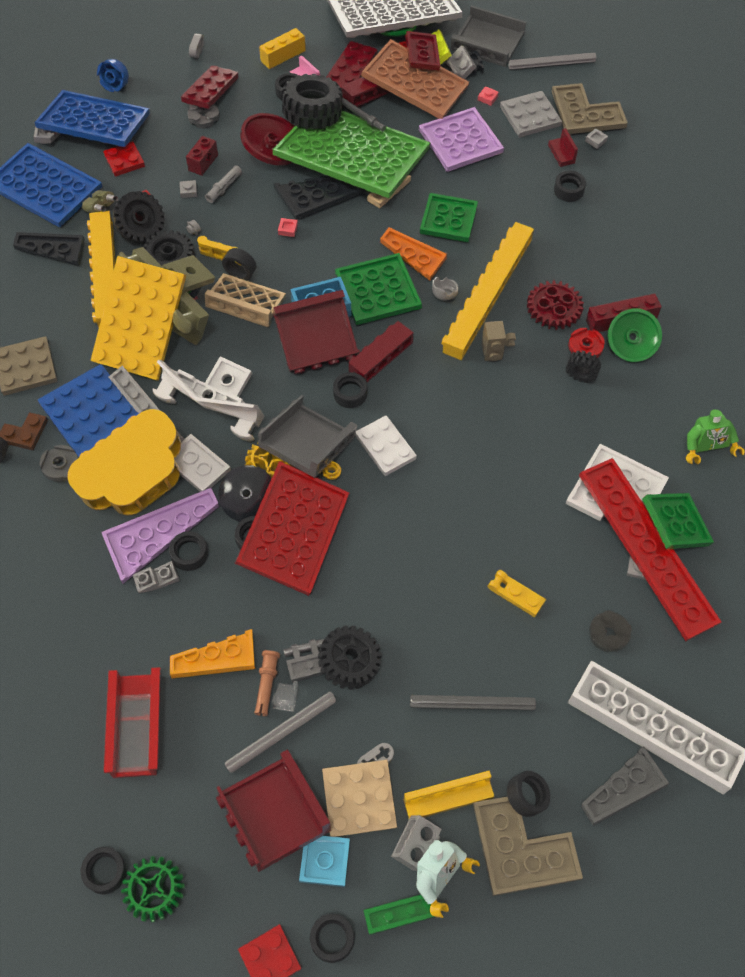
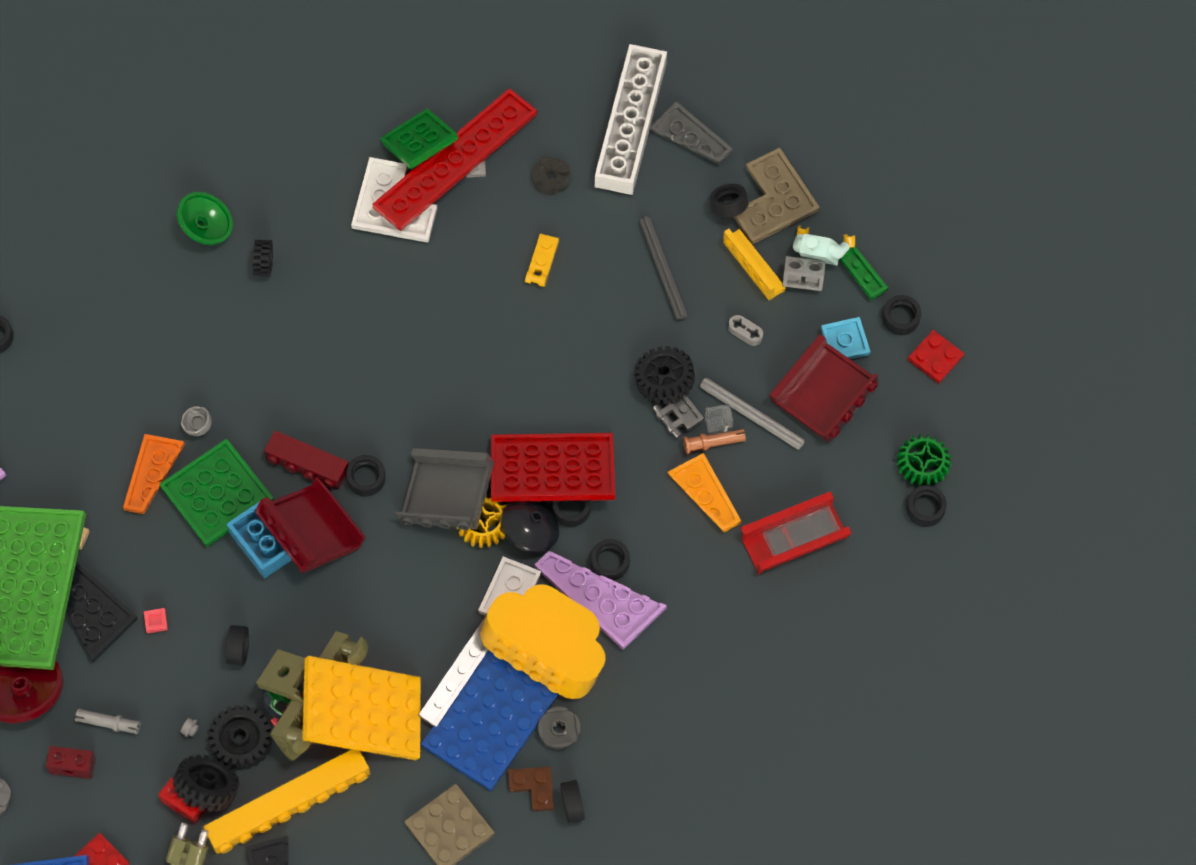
camera: 110 degrees left, 5 degrees up
(153, 579) = (648, 579): light grey slope -> none
(188, 189) = (126, 762): light grey plate -> none
(212, 248) = (217, 682): yellow plate -> none
(224, 398) = (437, 584): white piece -> none
(240, 307) = (294, 623): tan fence -> none
(359, 798) = (782, 330): tan plate -> none
(385, 445) = (420, 421): white plate -> none
(449, 217) = (83, 450): green plate -> none
(487, 291) = (181, 378): yellow brick -> none
(495, 340) = (260, 347): dark tan brick -> none
(555, 304) = (165, 304): dark red gear -> none
(583, 335) = (228, 276): red plate -> none
(601, 316) = (178, 242): dark red arch -> none
(710, 434) = (308, 129): bright green torso -> none

